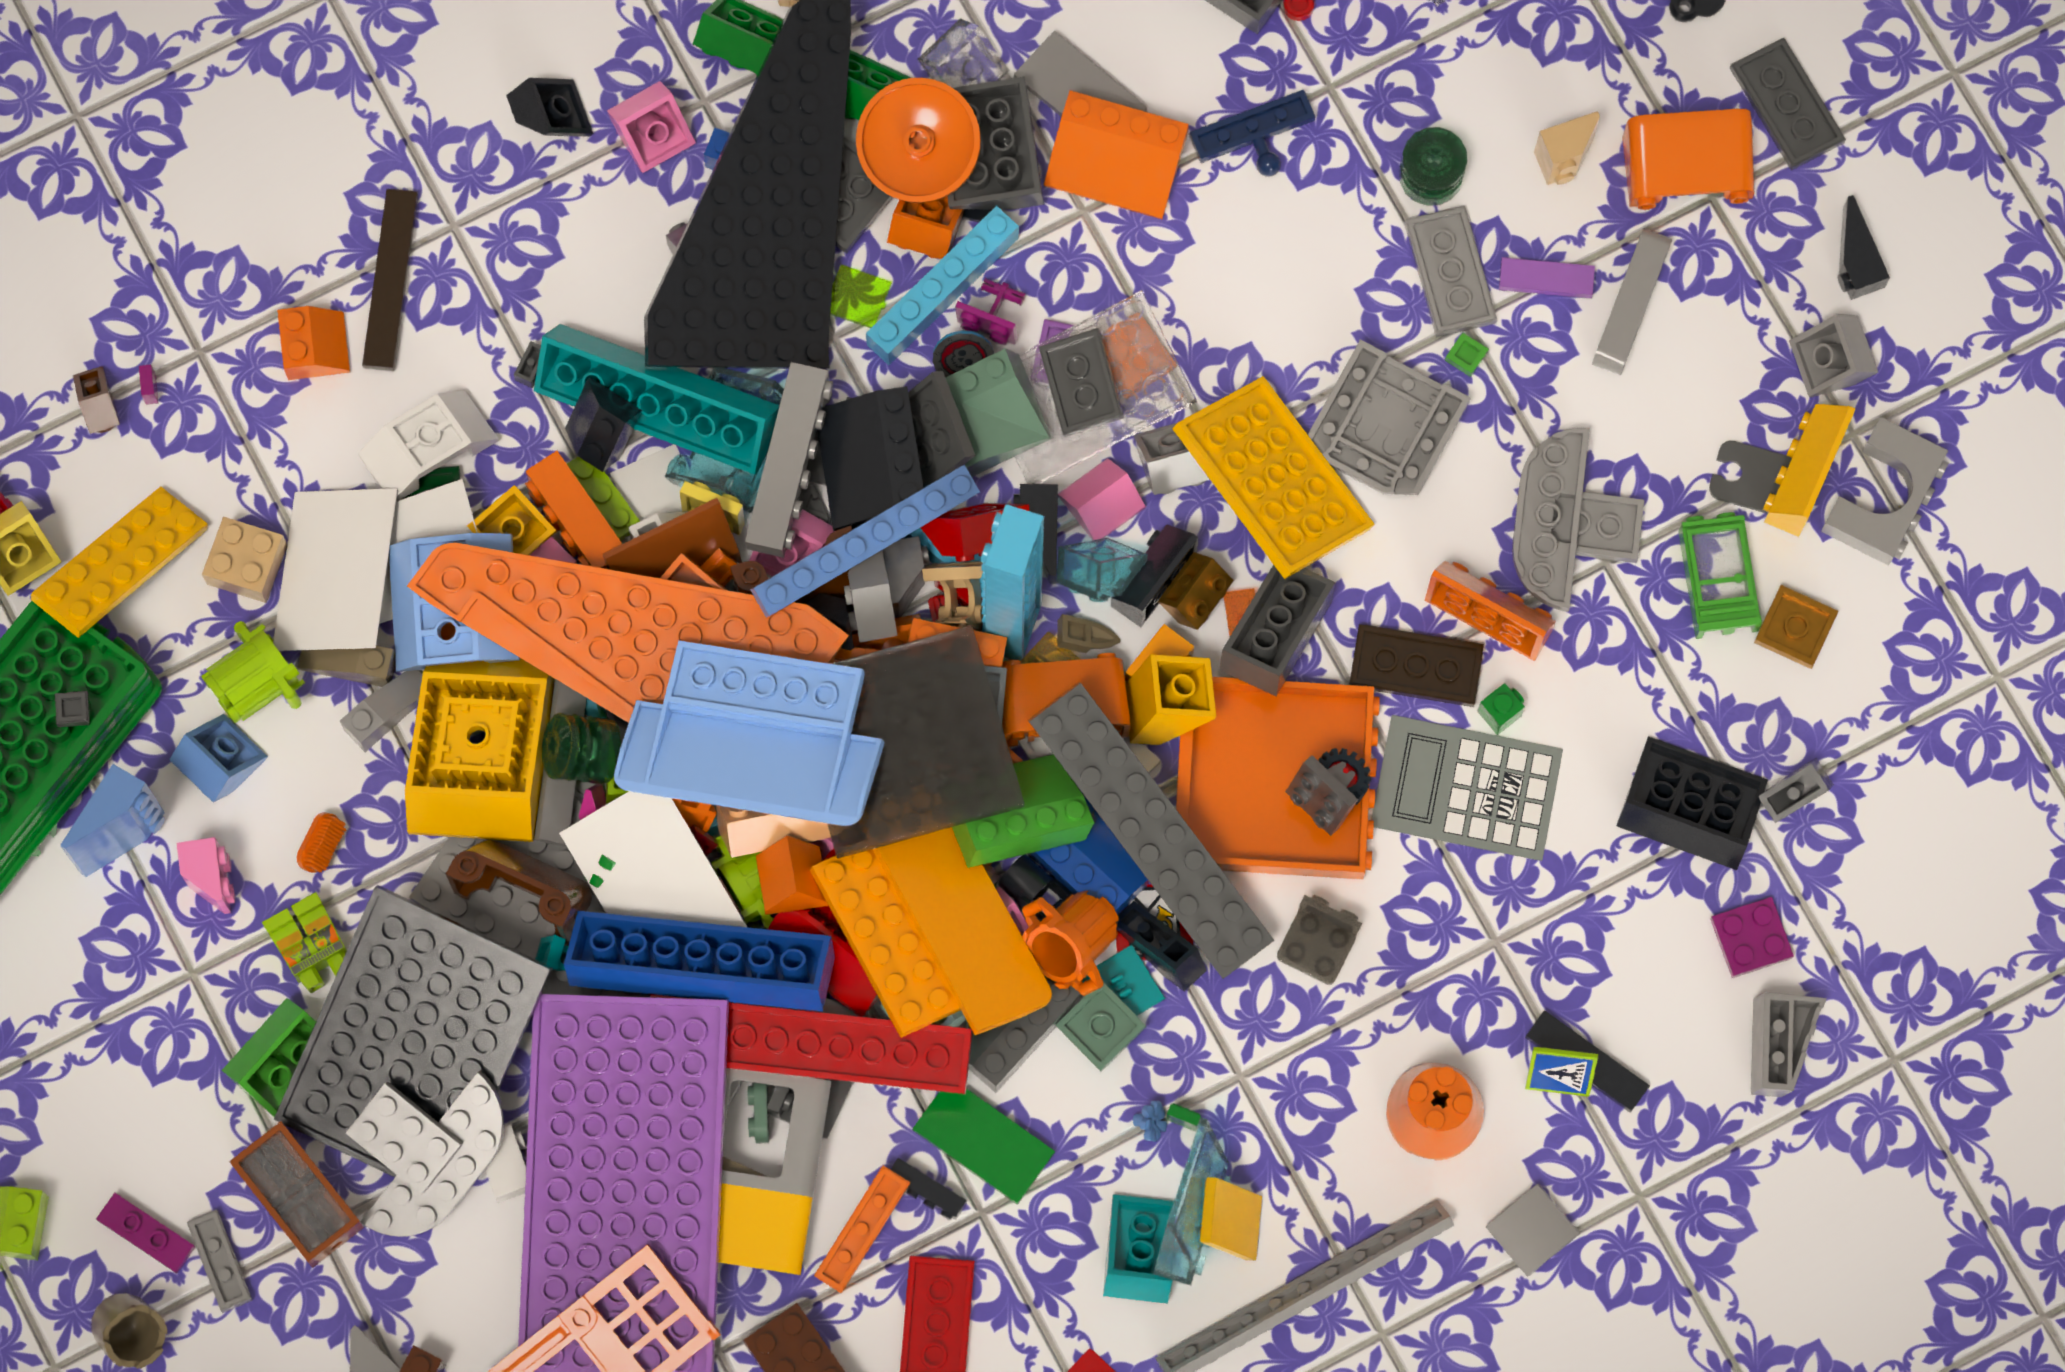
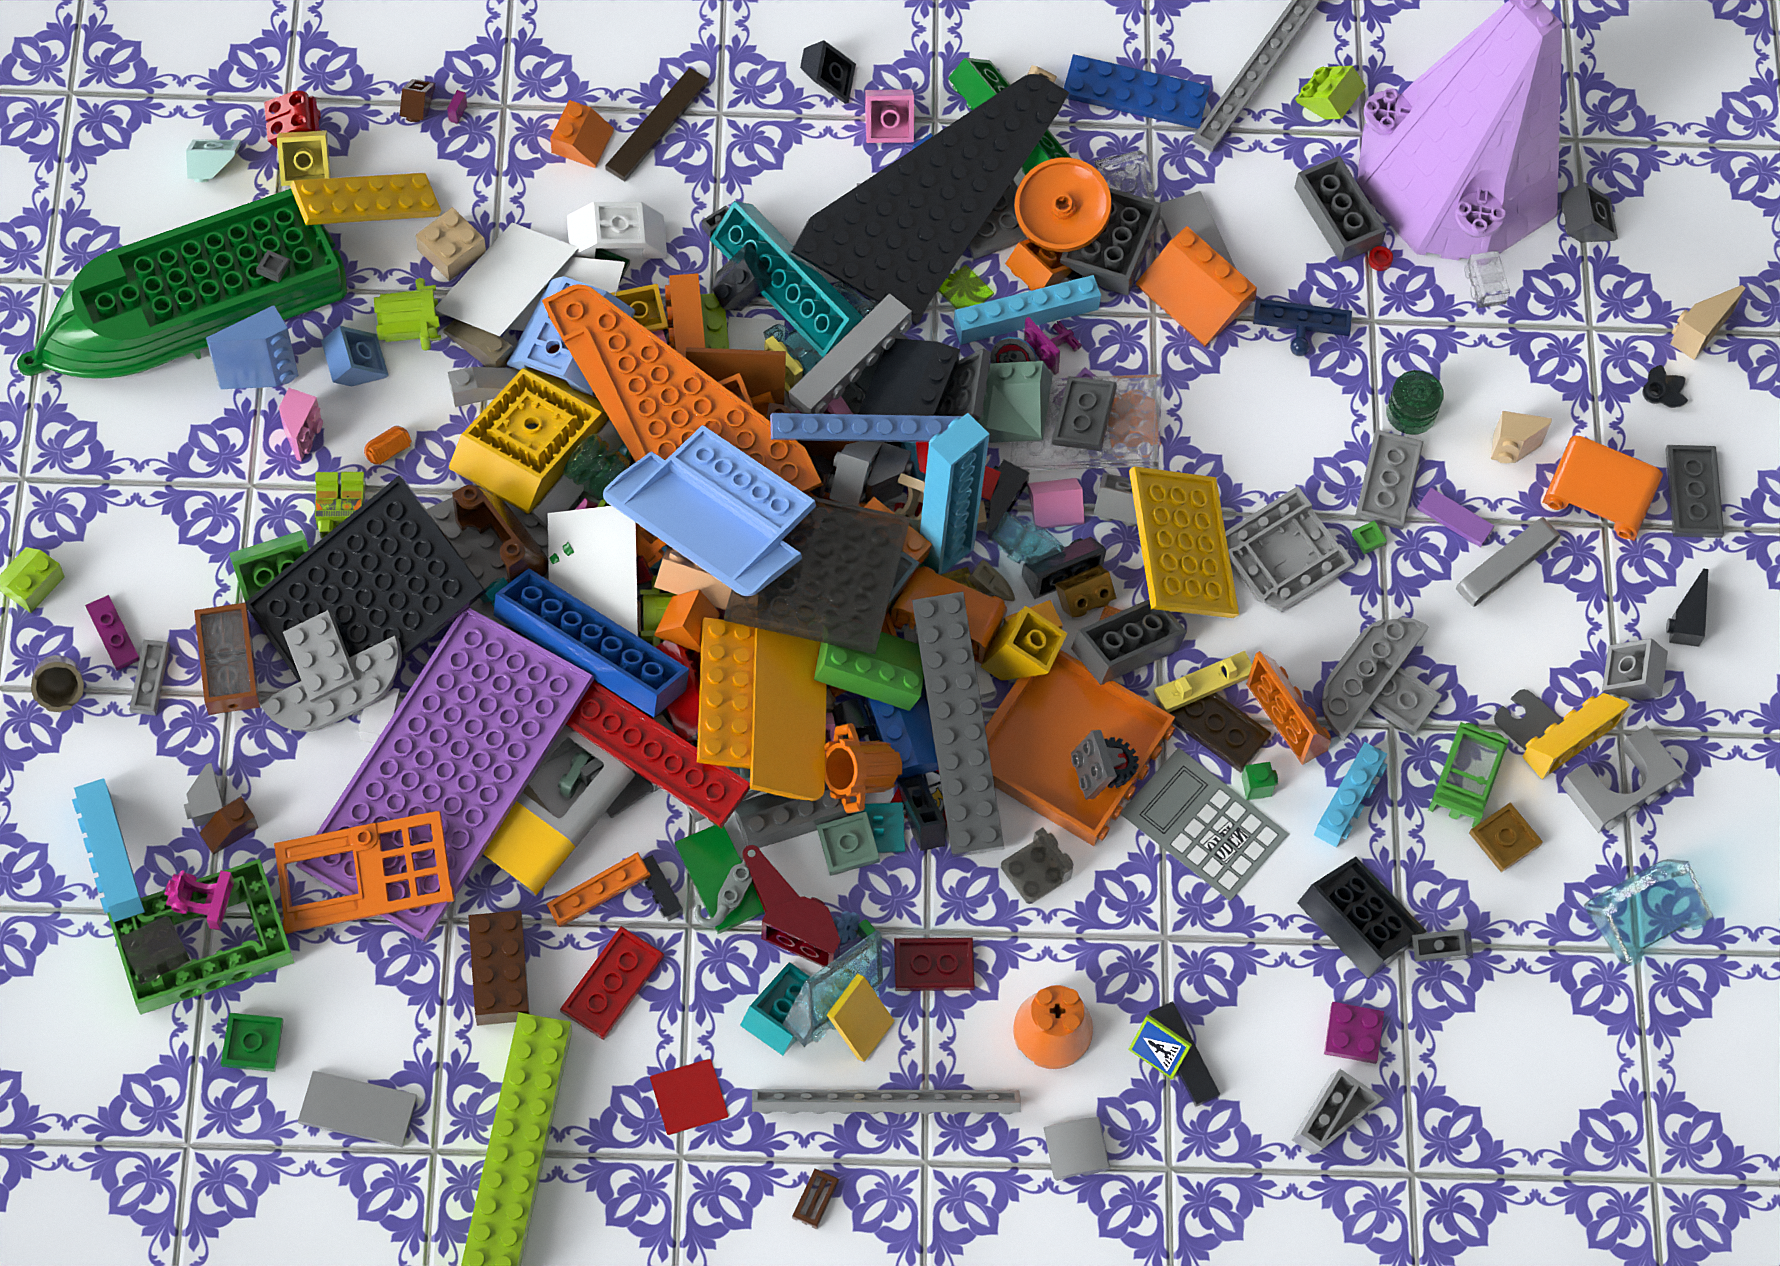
camera: 25 degrees right, 10 degrees down
(1092, 1150) = (790, 921): none -> dark red slope
(1268, 1109) = (934, 964): none -> dark red tile
(1381, 626) = (1203, 682): none -> light yellow hinge
(1607, 669) = (1350, 794): none -> medium azure brick
(1986, 625) = (1649, 908): none -> clear light blue windscreen

